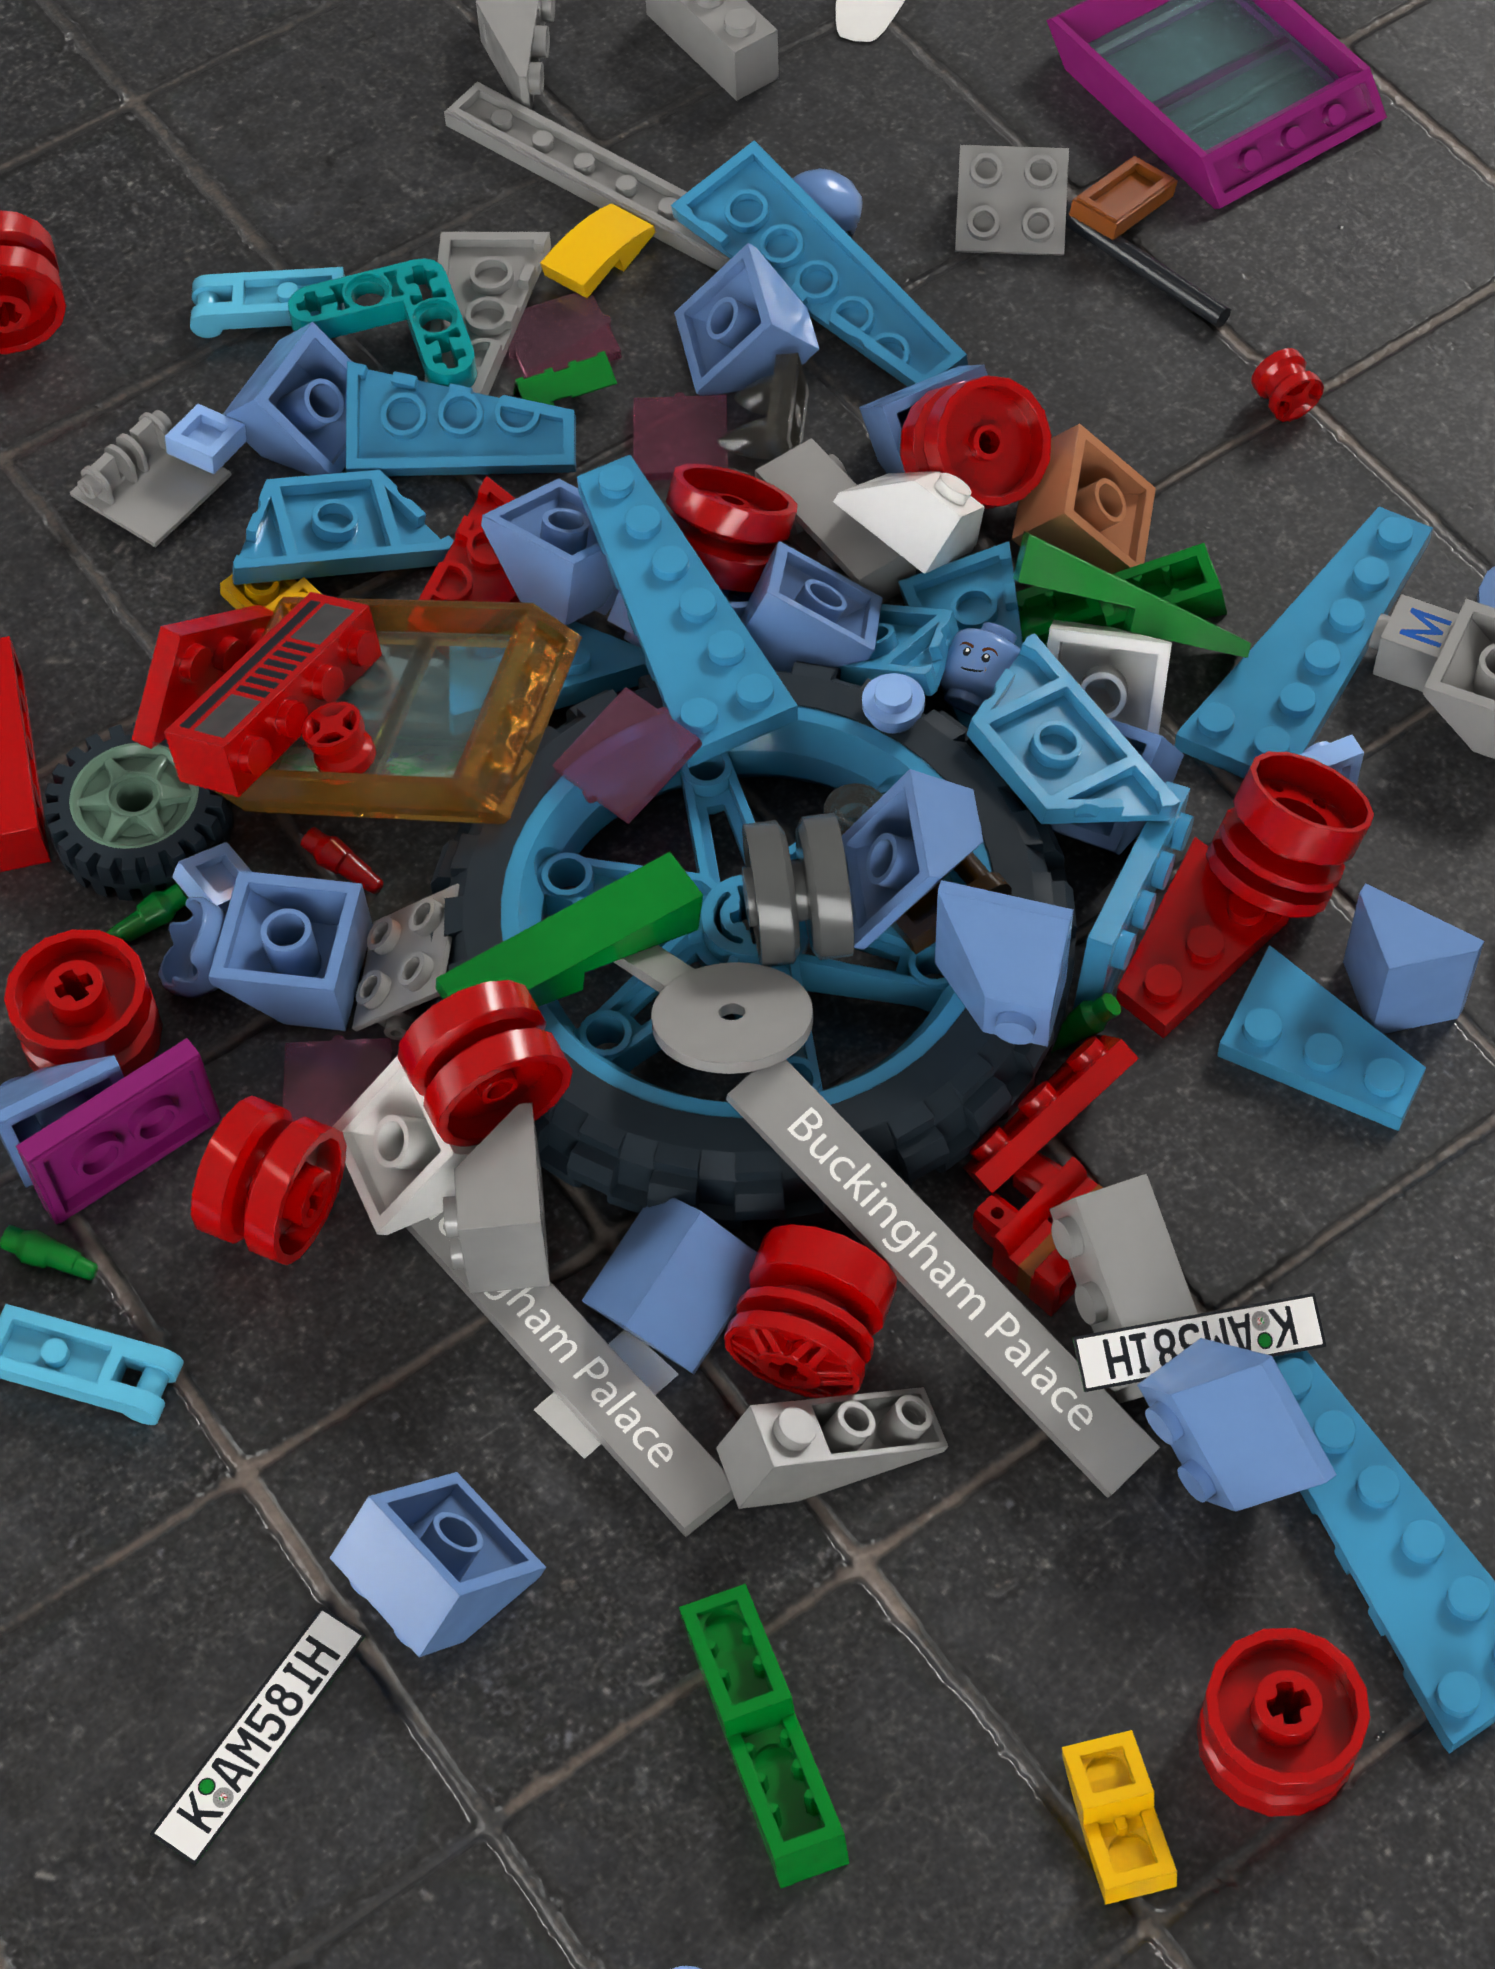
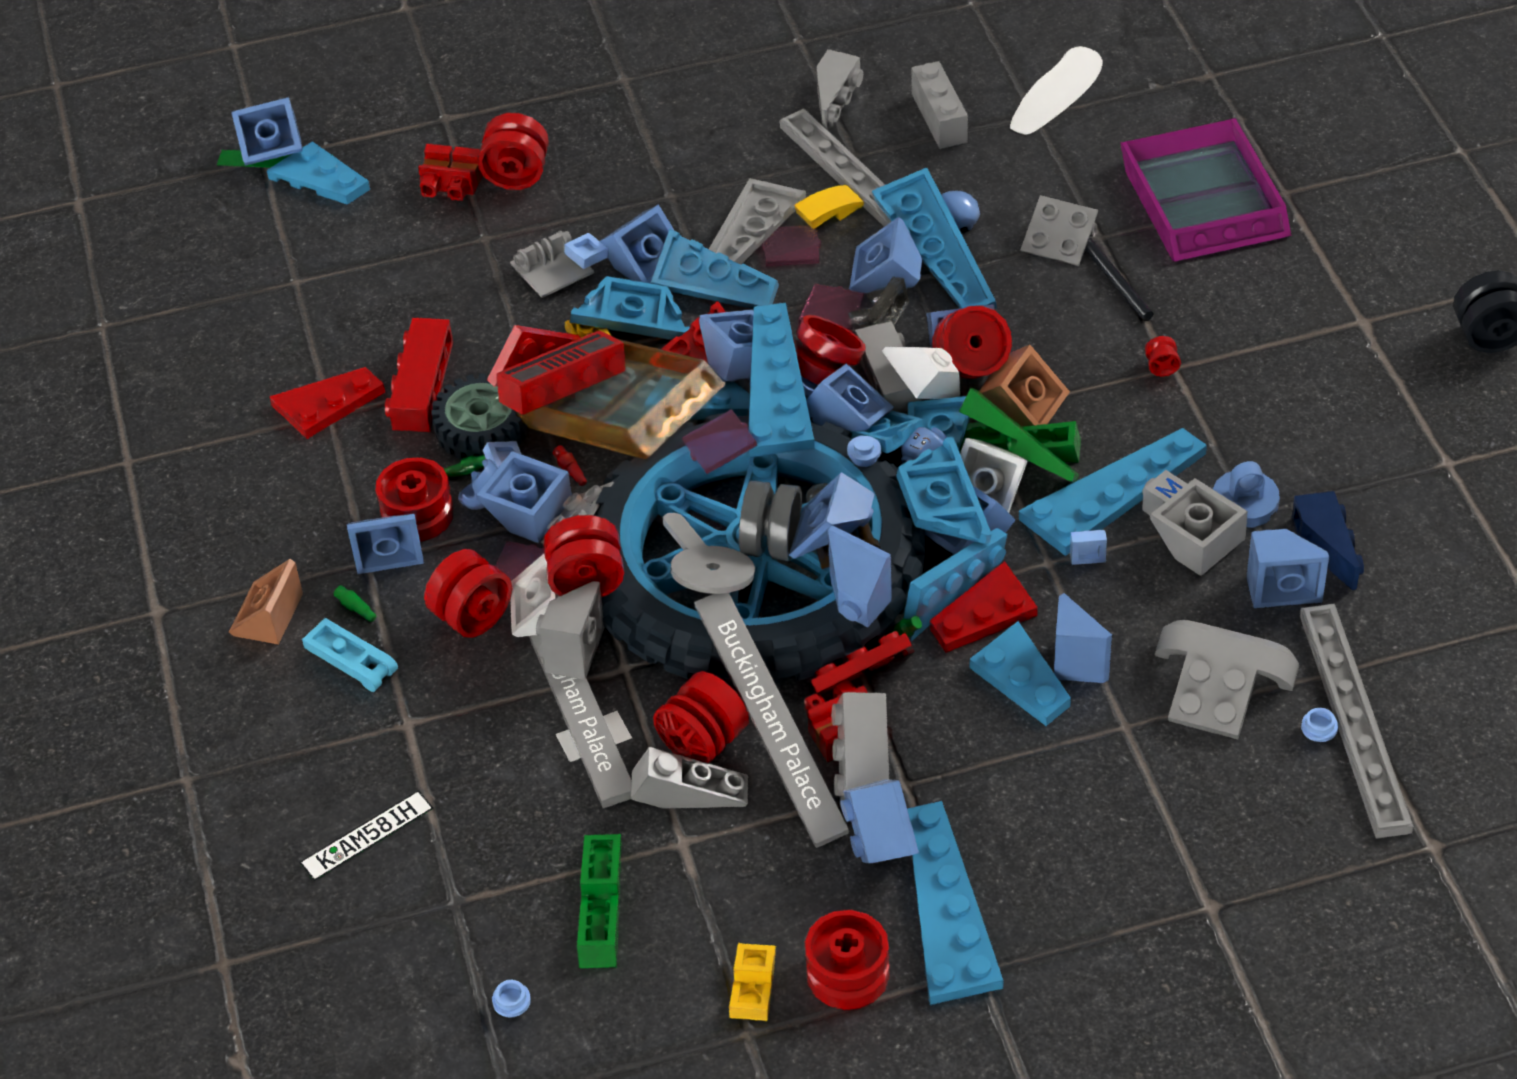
camera: 20 degrees right, 10 degrees down
(120, 1131) = (405, 553): magenta tile -> none
(253, 298) = (648, 192): medium azure plate -> none
(338, 739) = (583, 400): red wheel -> none
(400, 302) = (712, 207): teal beam -> none
(434, 1561) = (476, 781): medium blue slope -> none
(574, 381) = (786, 267): green piece -> none
(608, 925) = (682, 513): green slope -> none
(674, 1281) = (641, 691): medium blue slope -> none
(1123, 197) = (1121, 243): dark orange tile -> none
(1137, 1351) = (914, 786): sticker -> none
(1289, 834) = (1044, 565): red wheel -> none

